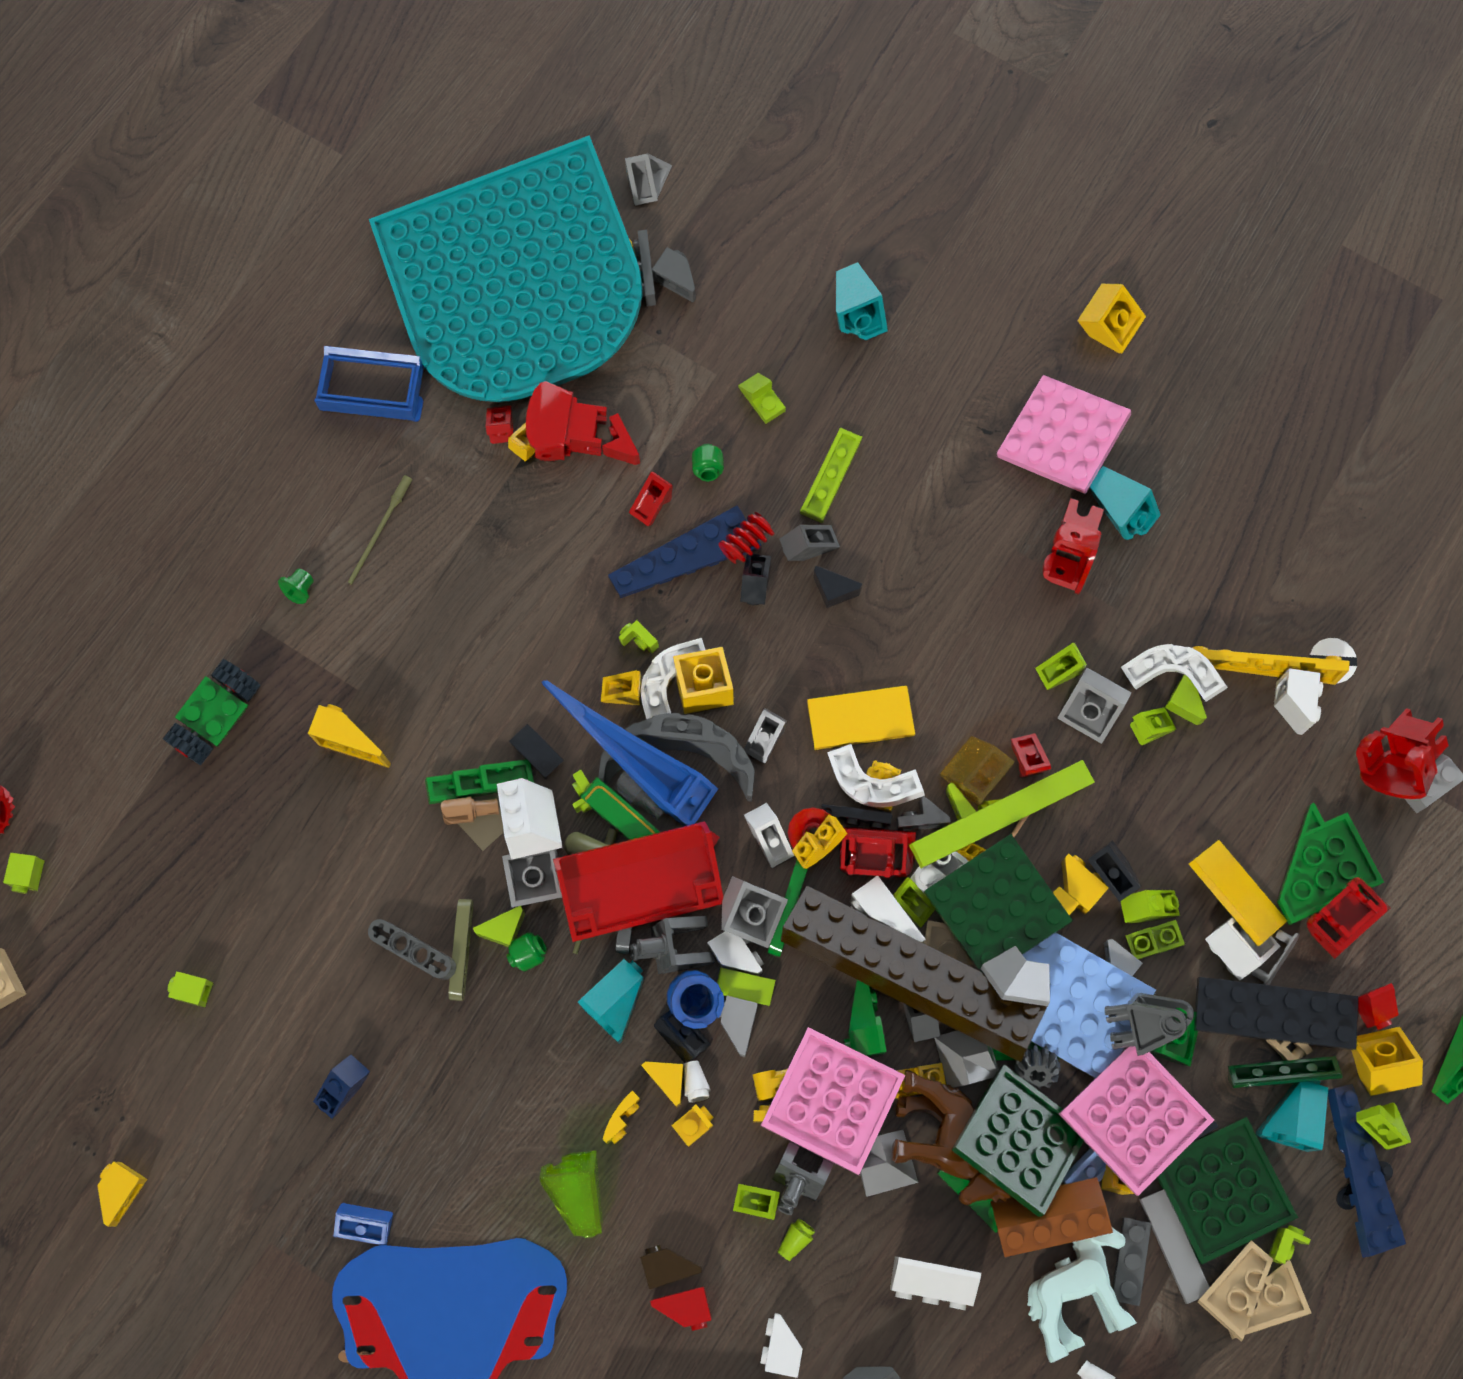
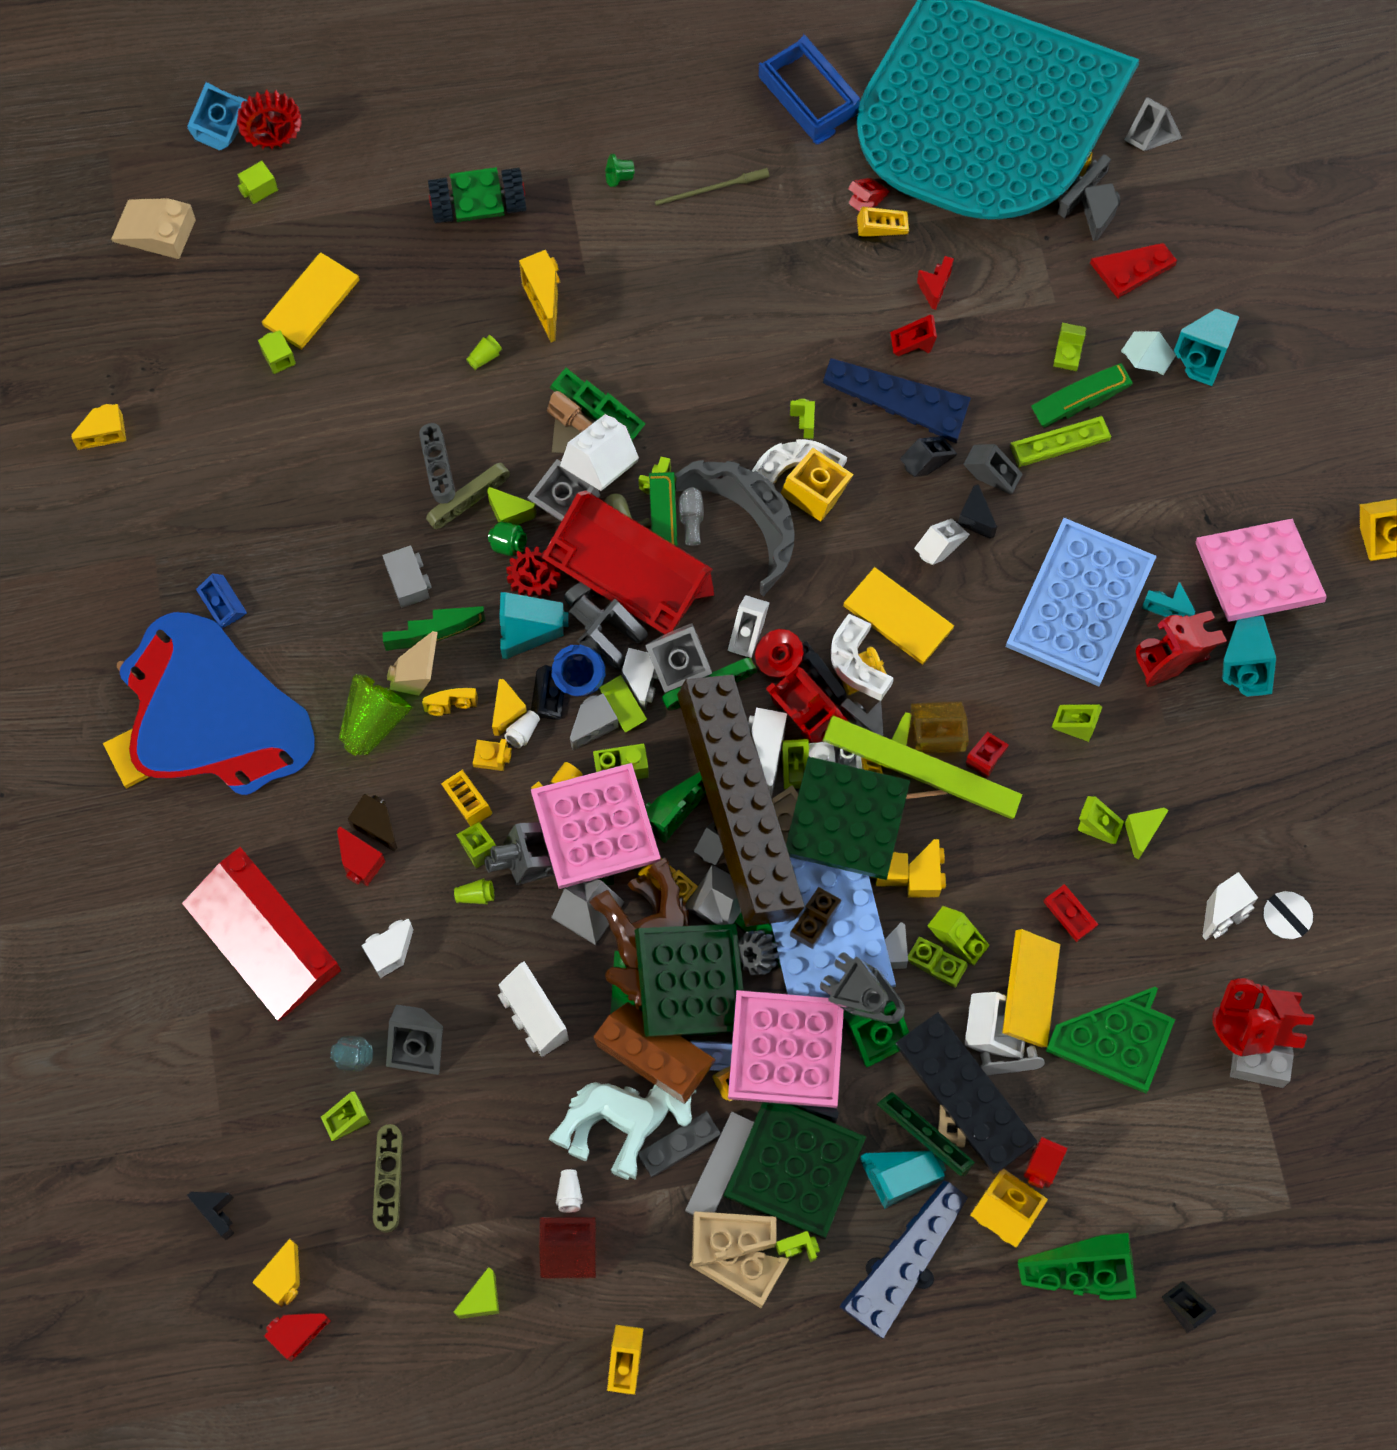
camera: 45 degrees right, 5 degrees down
(170, 922) = (311, 300): none -> yellow tile
(341, 1086) = (301, 501): dark blue slope -> none
(350, 827) = (484, 352): none -> lime cone
(484, 1058) = (406, 576): none -> light grey brick
(536, 750) = (656, 422): black slope -> none
(552, 1065) = (444, 622): none -> green slope
(559, 421) = (908, 224): red piece -> none
(568, 968) = (522, 576): none -> red gear
(570, 1121) = (414, 667): none -> tan slope
(622, 688) = (757, 438): yellow slope -> none
(668, 782) = (718, 523): blue plate -> none
(707, 462) = (981, 350): green head -> none
(733, 1181) = (474, 812): none -> yellow slope
(743, 296) = (1133, 267): none -> red wing
(745, 537) = (949, 420): red piece -> none
(765, 735) = (818, 559): flat silver slope -> none
(793, 1031) = (621, 756): none -> lime slope
(811, 426) = (1082, 394): none -> green slope
(817, 845) = (769, 660): yellow slope -> none
(820, 349) = (1149, 351): none -> light aqua slope
(833, 632) = (941, 541): none -> white slope
(971, 579) = (1081, 601): none -> light blue plate
(1019, 979) = (804, 868): light grey slope -> none
(1037, 516) = (1163, 605): none -> teal slope
(1059, 1011) = (815, 917): none -> dark brown slope
(1094, 705) = (1072, 767): light grey slope -> none
(1115, 870) = (959, 882): black slope -> none
(1175, 659) = (1164, 790): white plate -> none
(1202, 810) = (1070, 913): none -> red plate
(1330, 669) = (1268, 906): yellow wing -> none
(1348, 915) = (1091, 1081): red piece -> none
(1384, 1125) = (957, 1244): lime slope -> none

